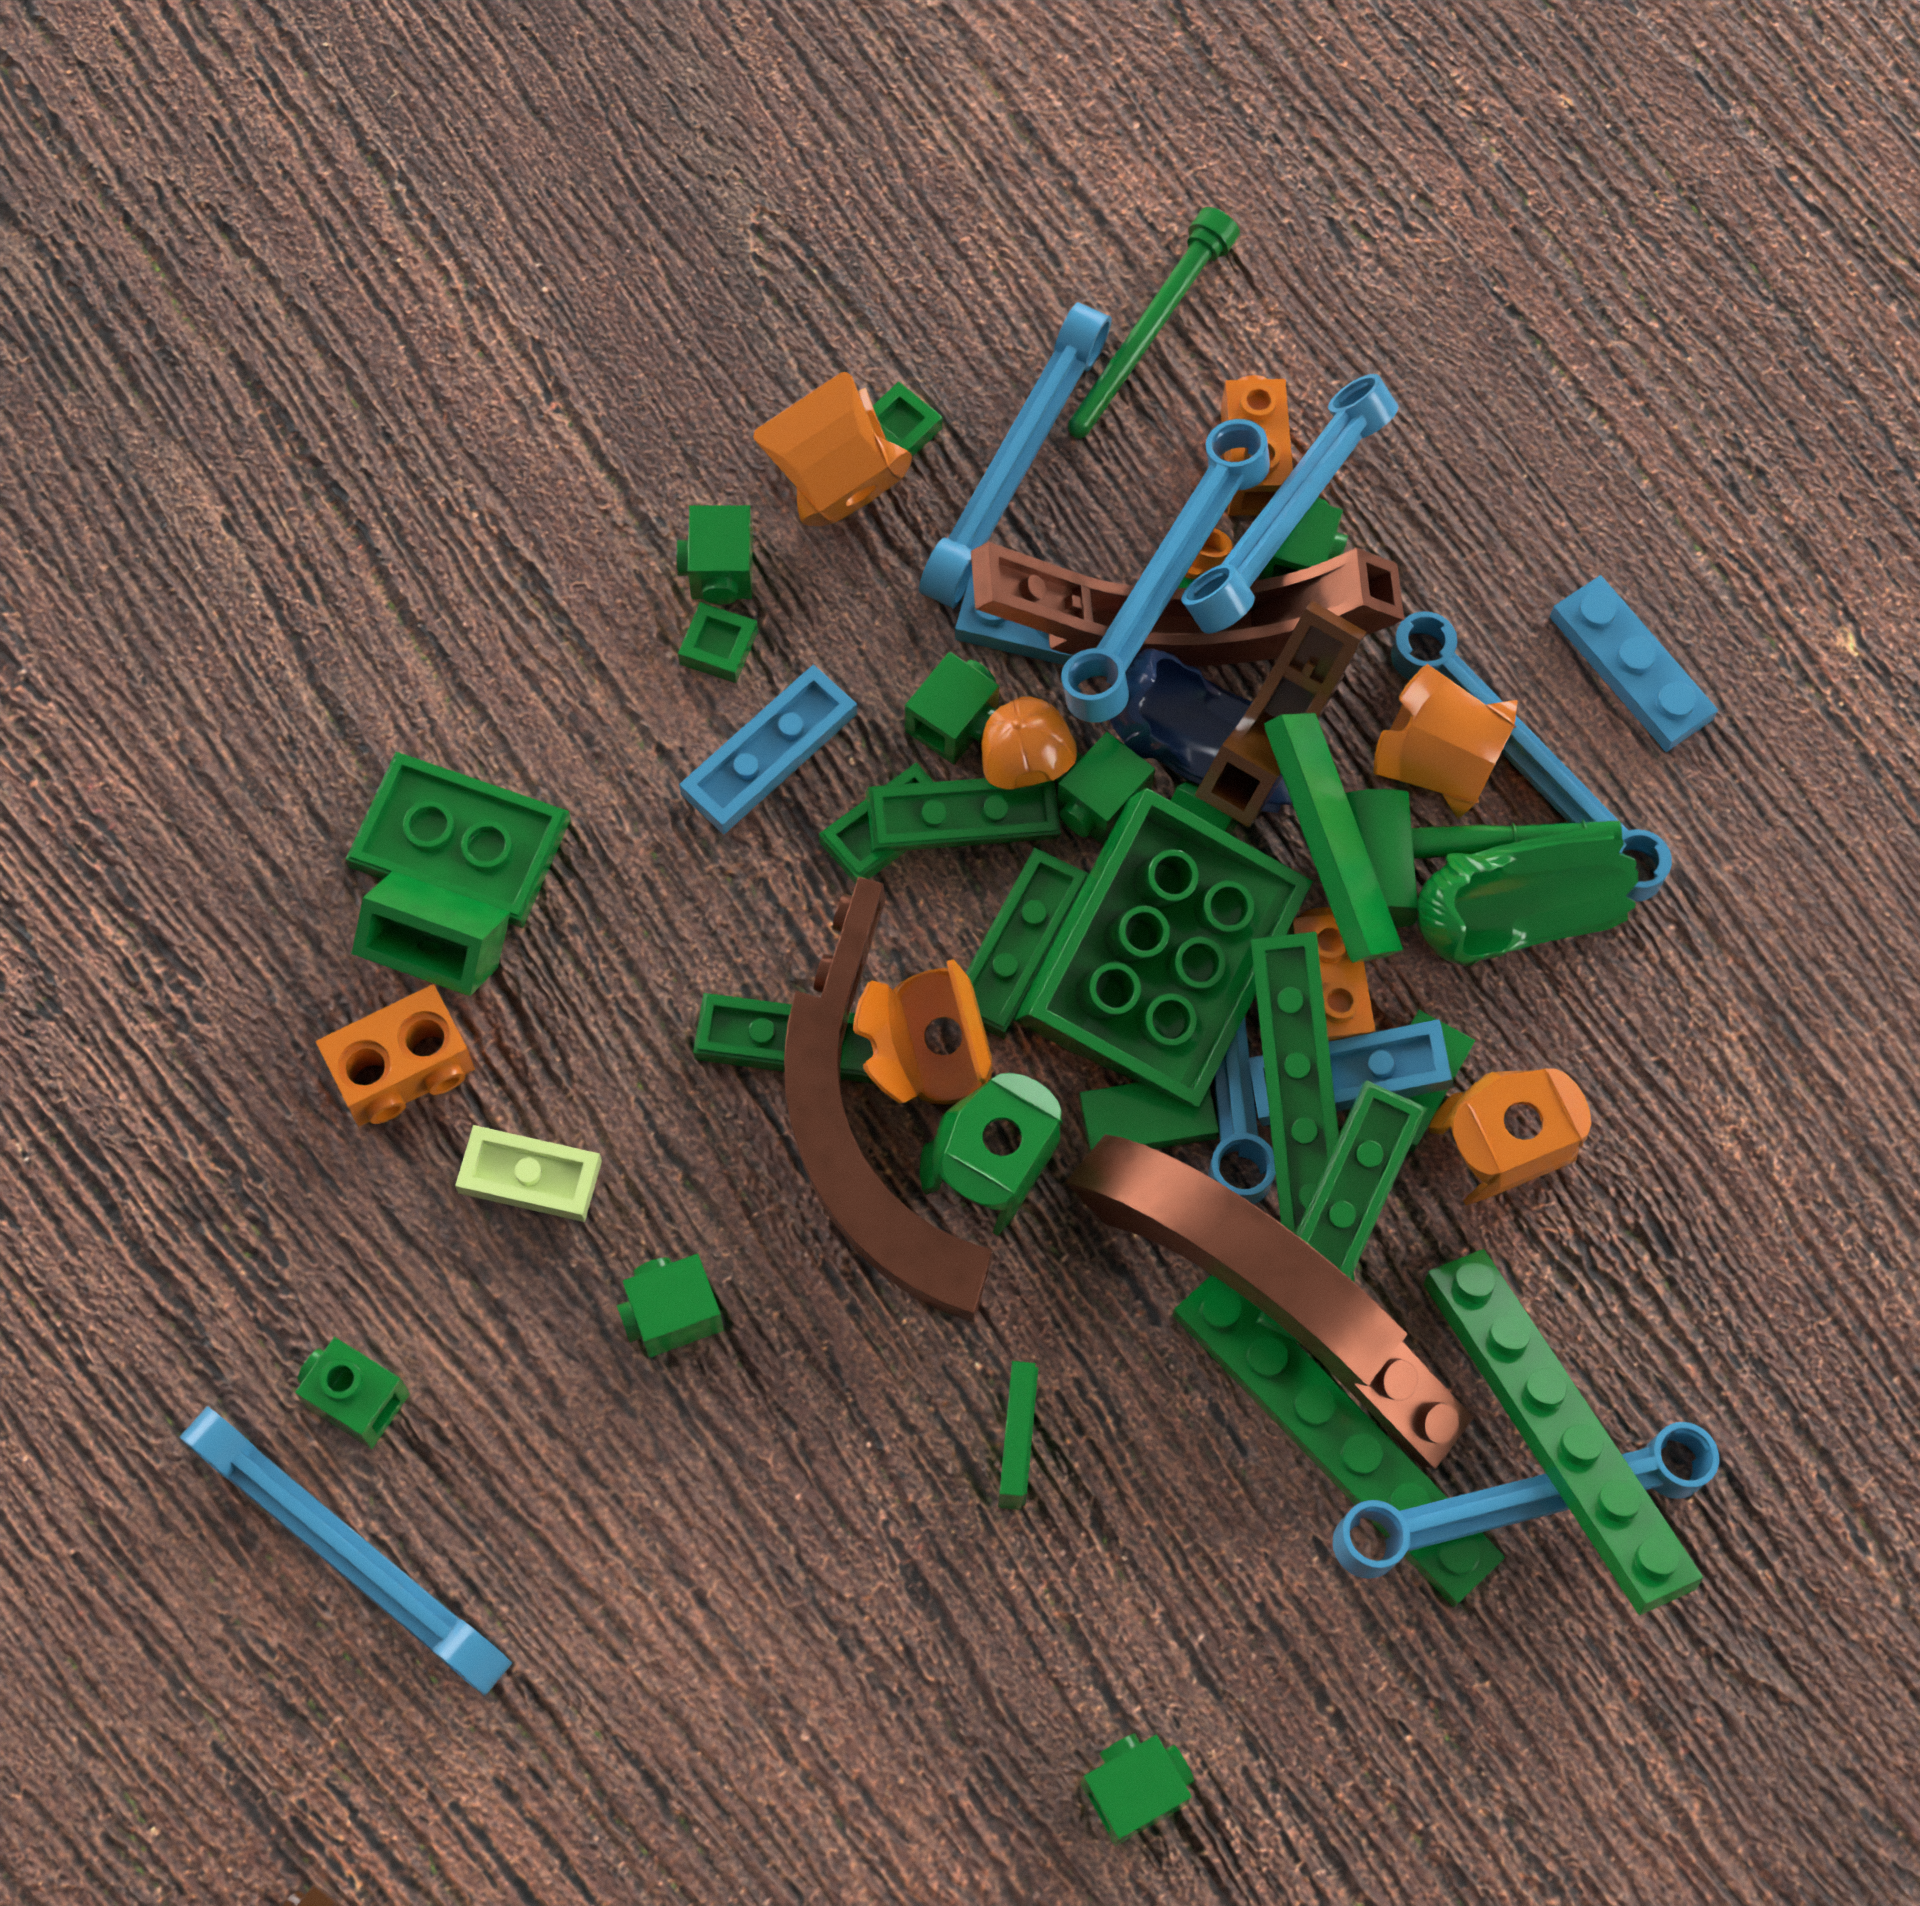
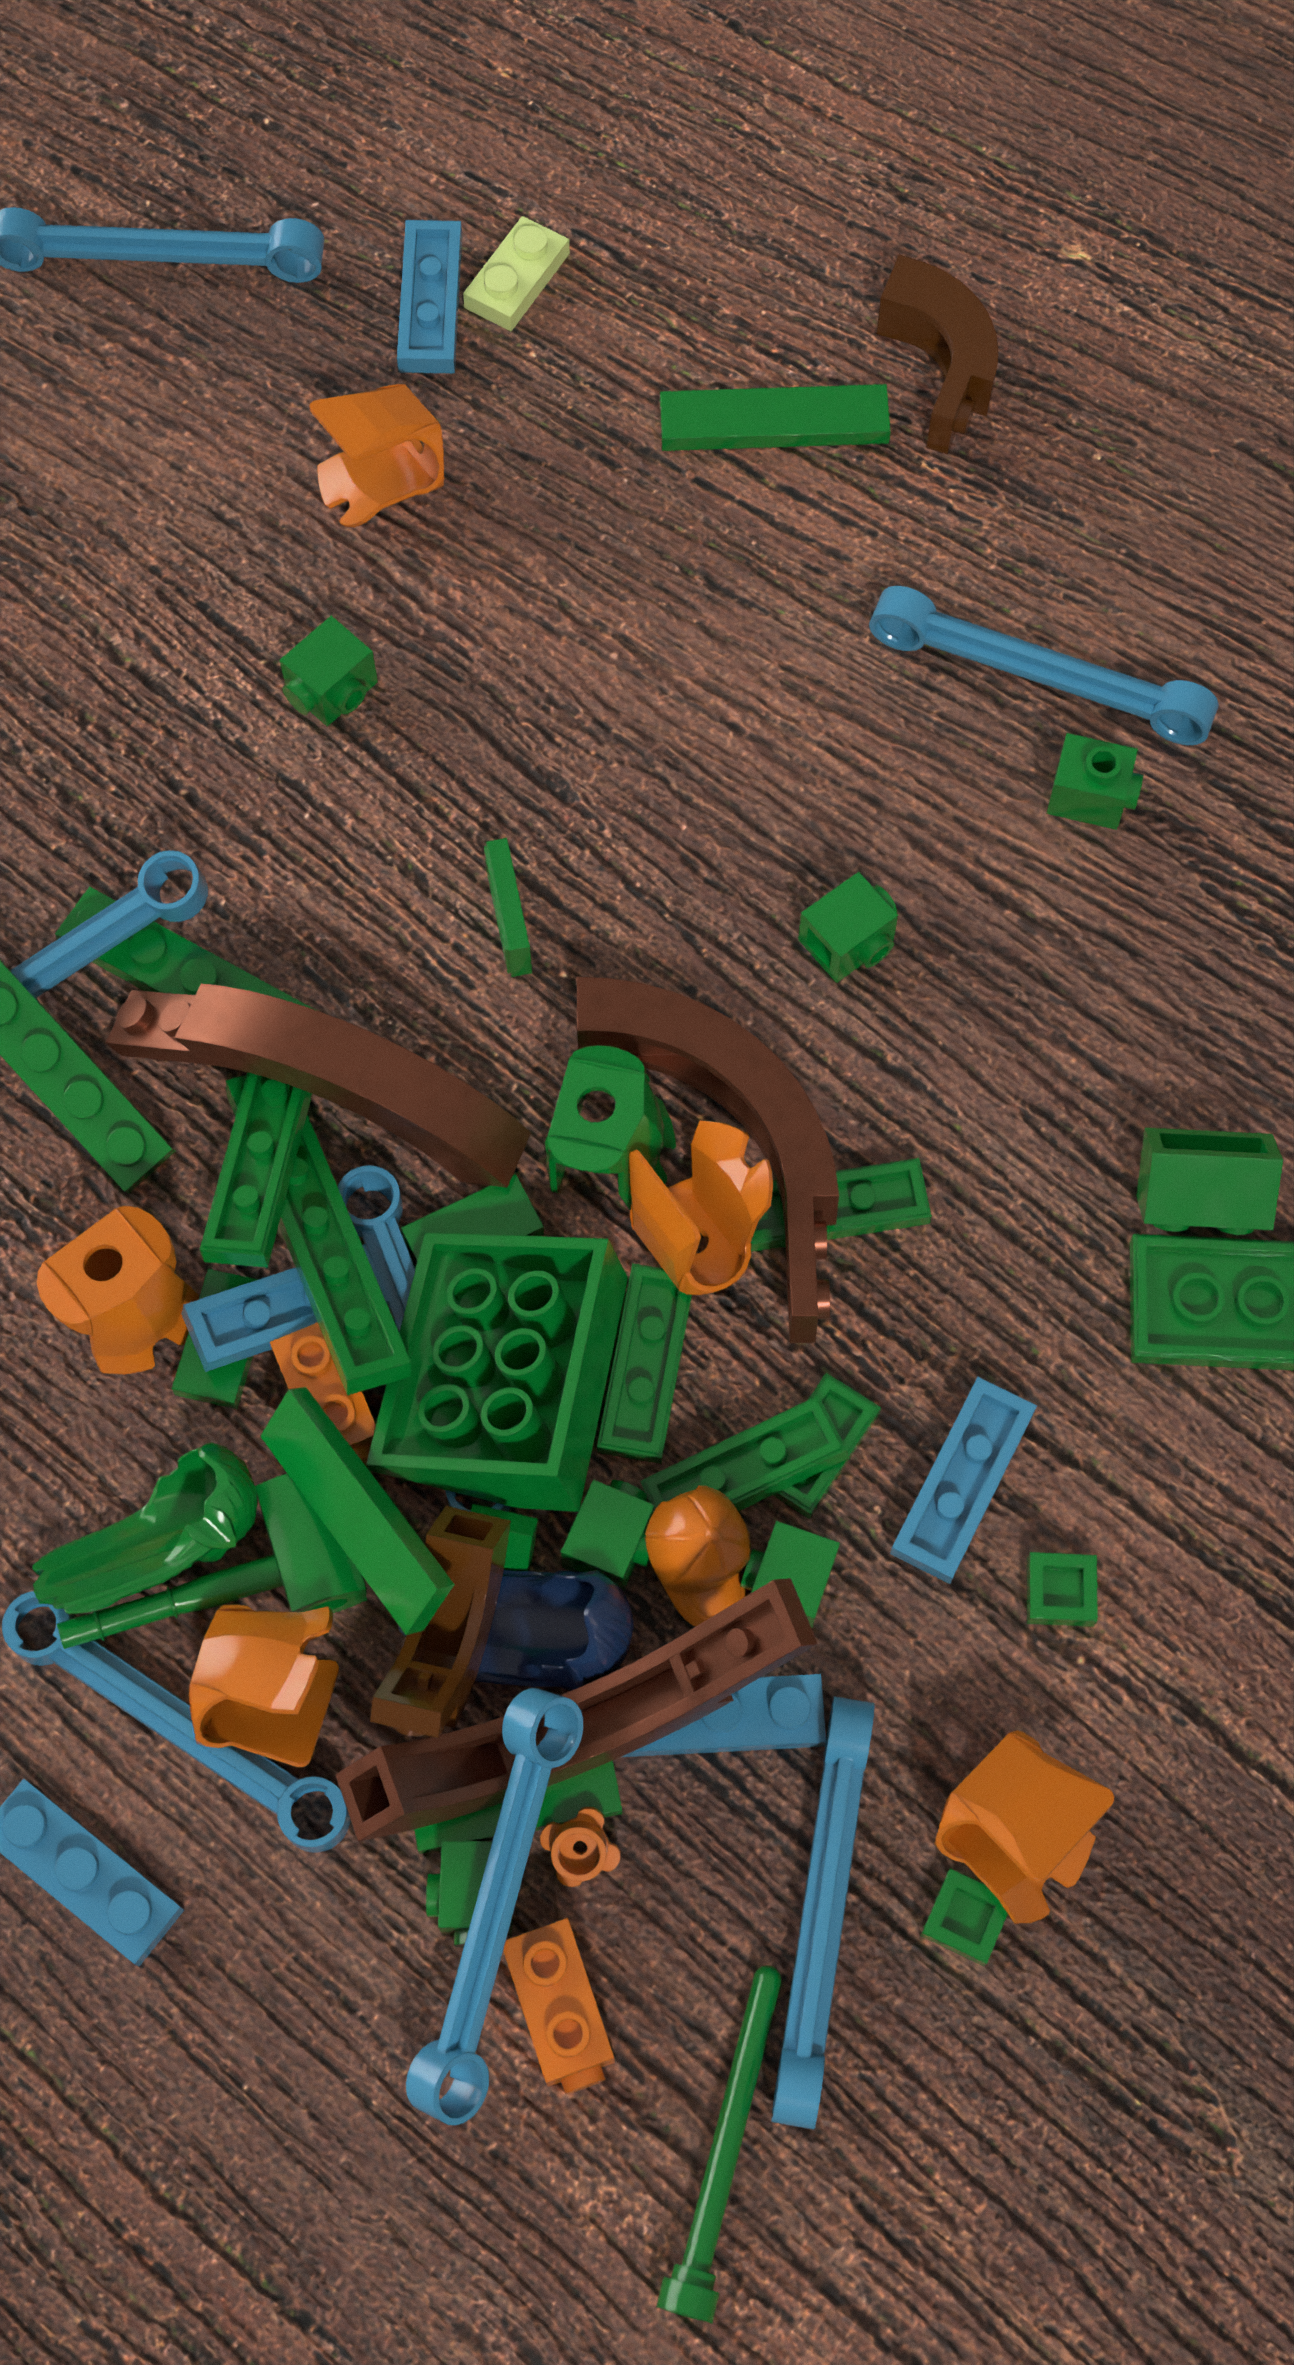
camera: 165 degrees right, 0 degrees up
(389, 1041) = (1196, 1073): orange brick -> none
(528, 1173) = (1023, 1005): yellowish green plate -> none
(718, 553) = (1099, 1677): green brick -> none
(1166, 570) = (607, 1759): dark azure piece -> none

